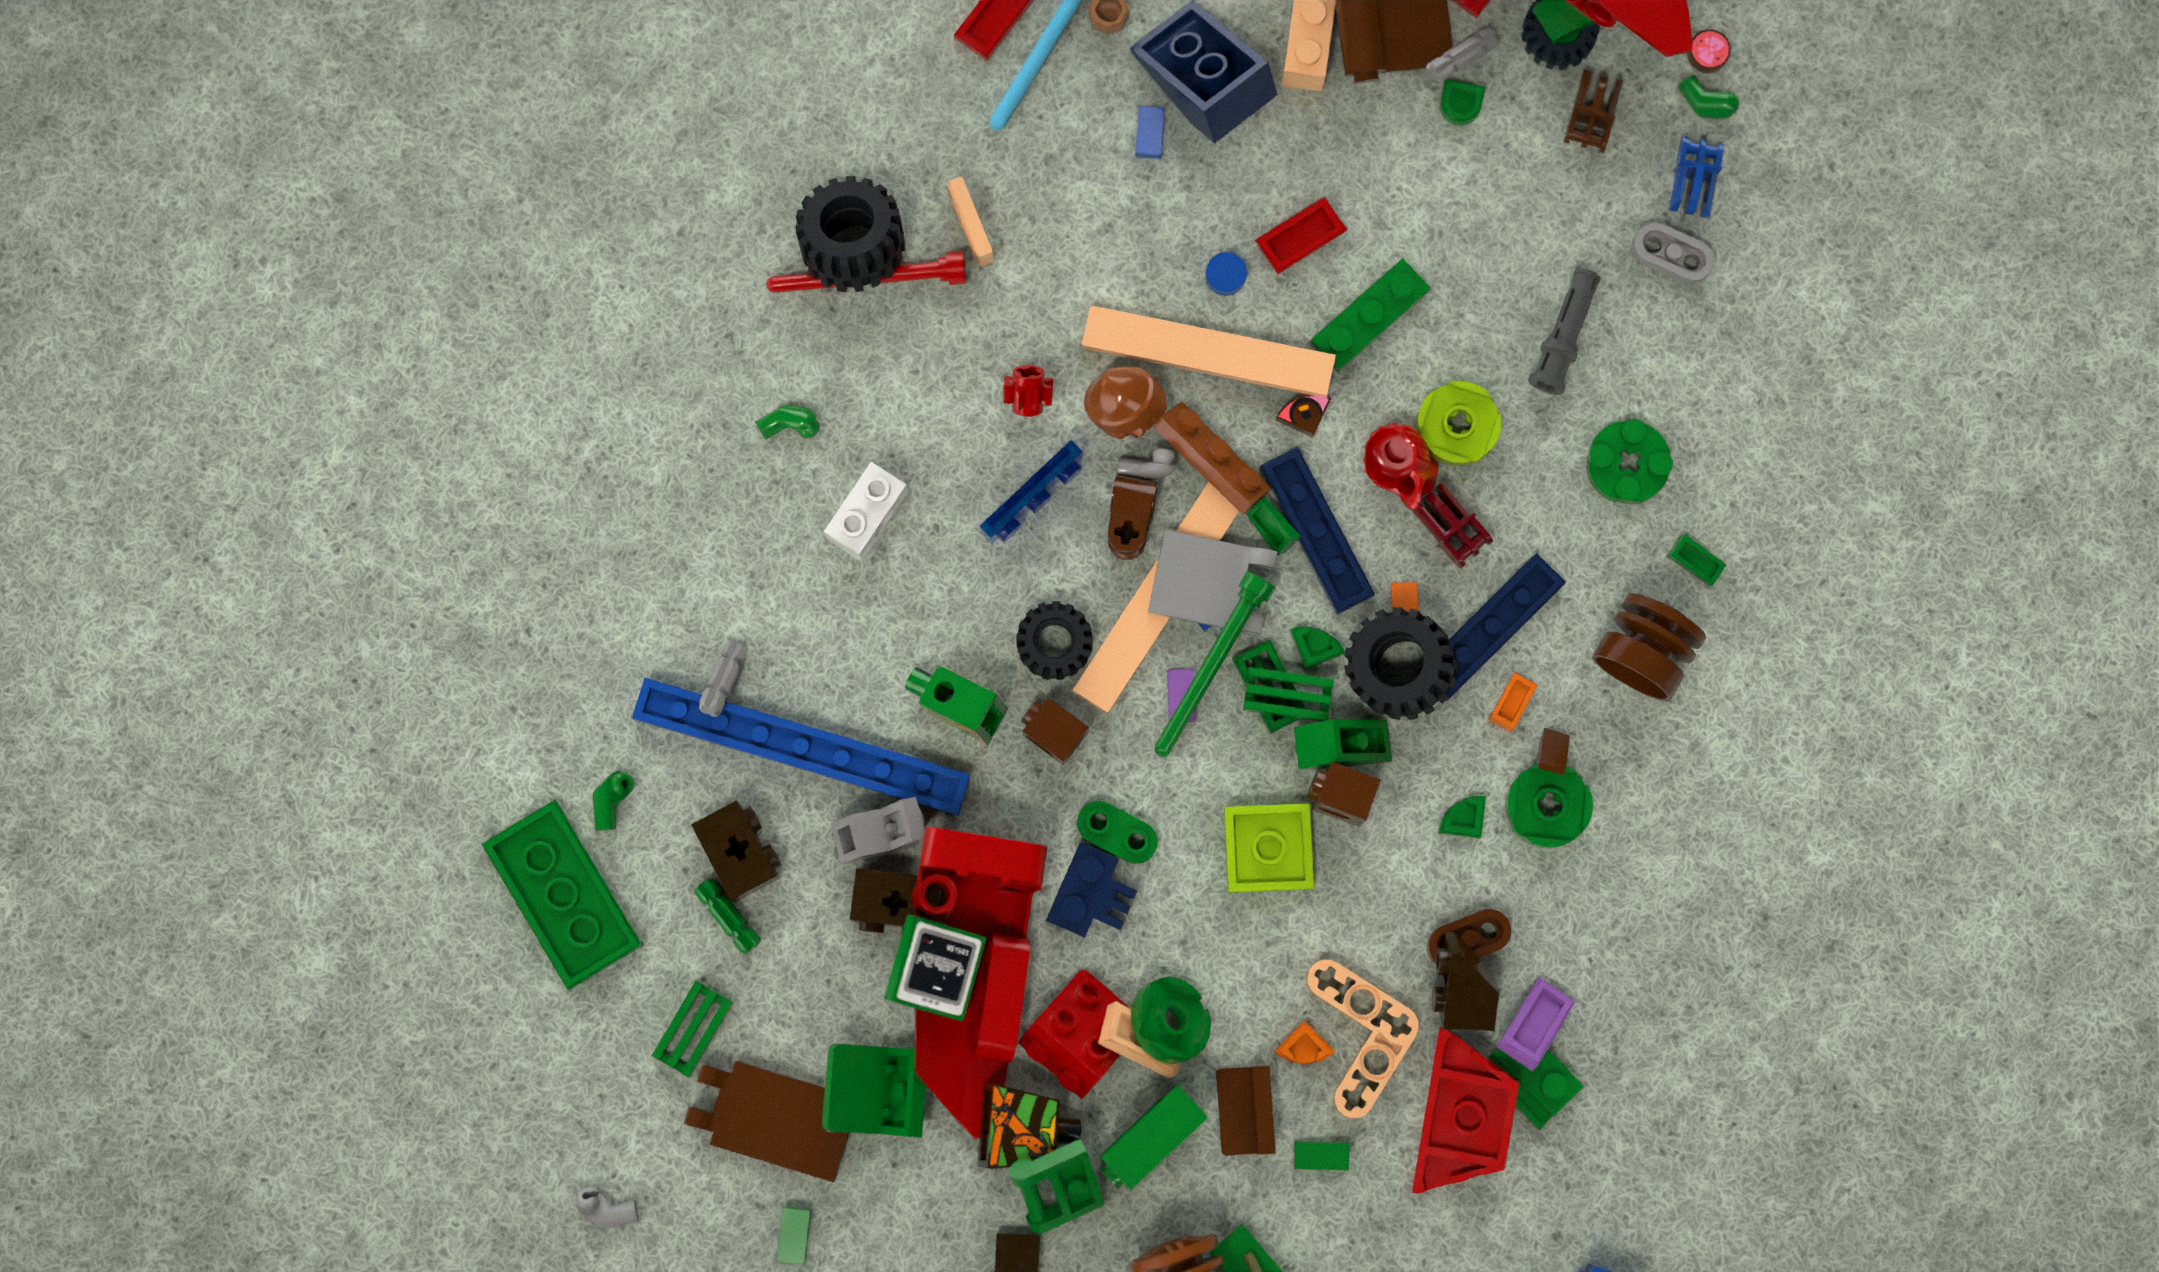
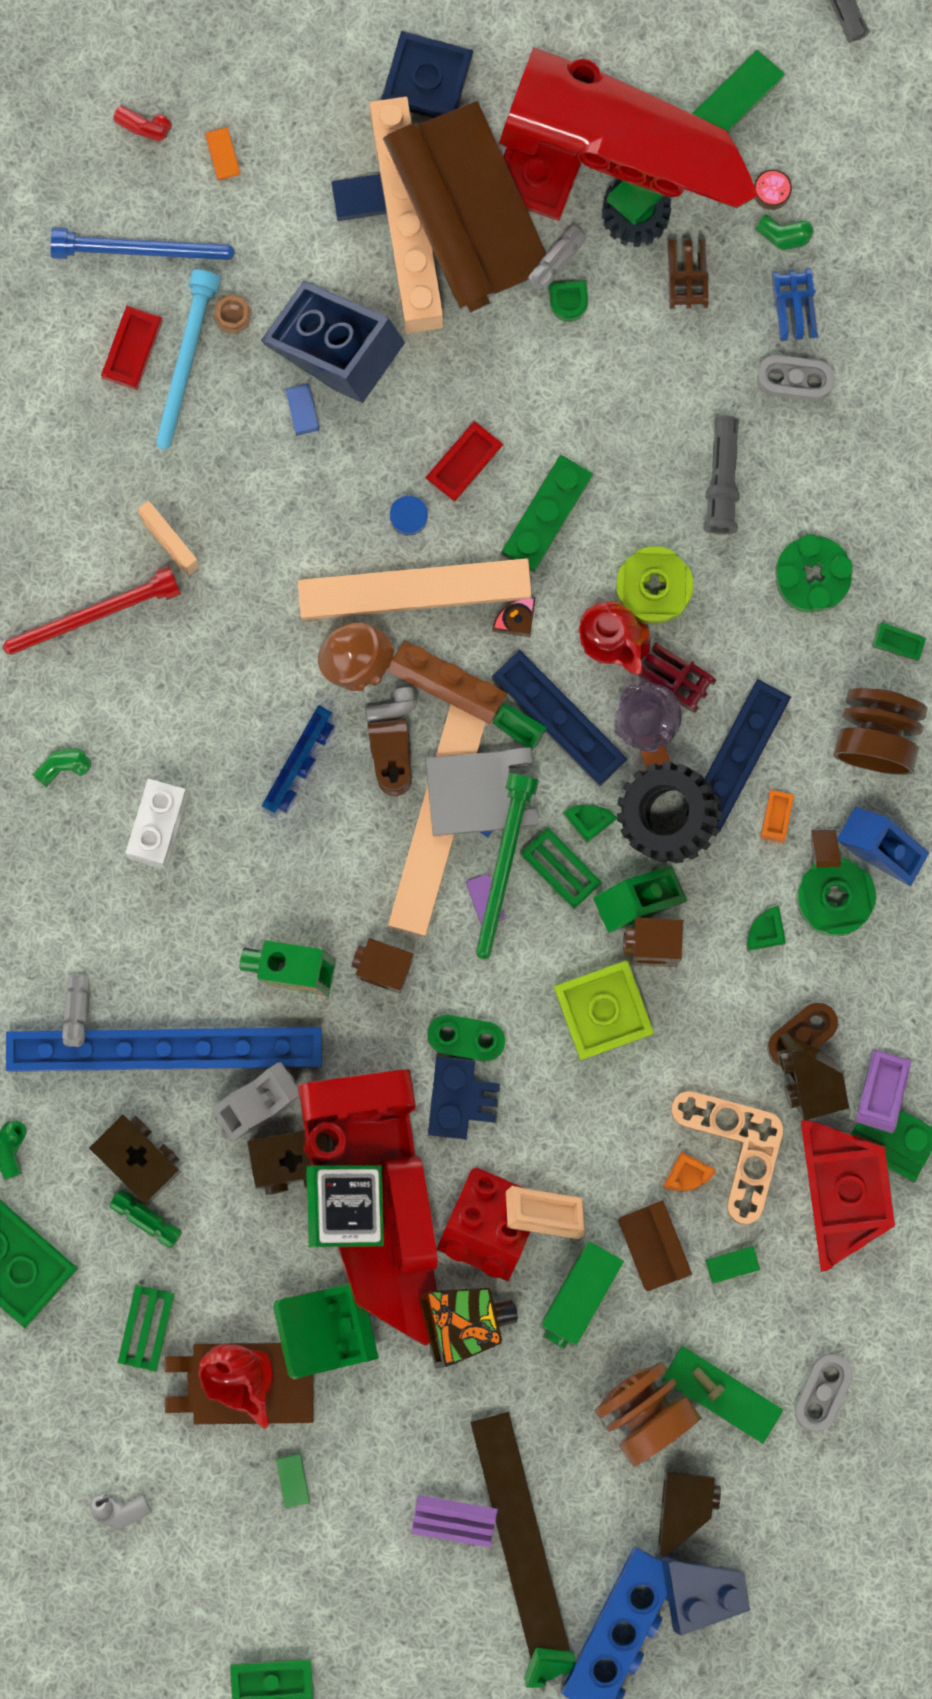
camera: 20 degrees left, 0 degrees up
(769, 1113) = (238, 1379): none -> red hair
(846, 206) = (53, 558): black tyre -> none
(1028, 390) = (266, 672): red gear -> none
(1062, 616) = (350, 864): black tyre -> none
(1071, 1182) = (521, 1355): green plate -> none
(1151, 1026) = (551, 1200): green tile -> none
(1291, 678) = (611, 865): green tile -> none
(1409, 556) = (647, 716): none -> clear purple hair
(1615, 766) = (883, 845): none -> blue slope

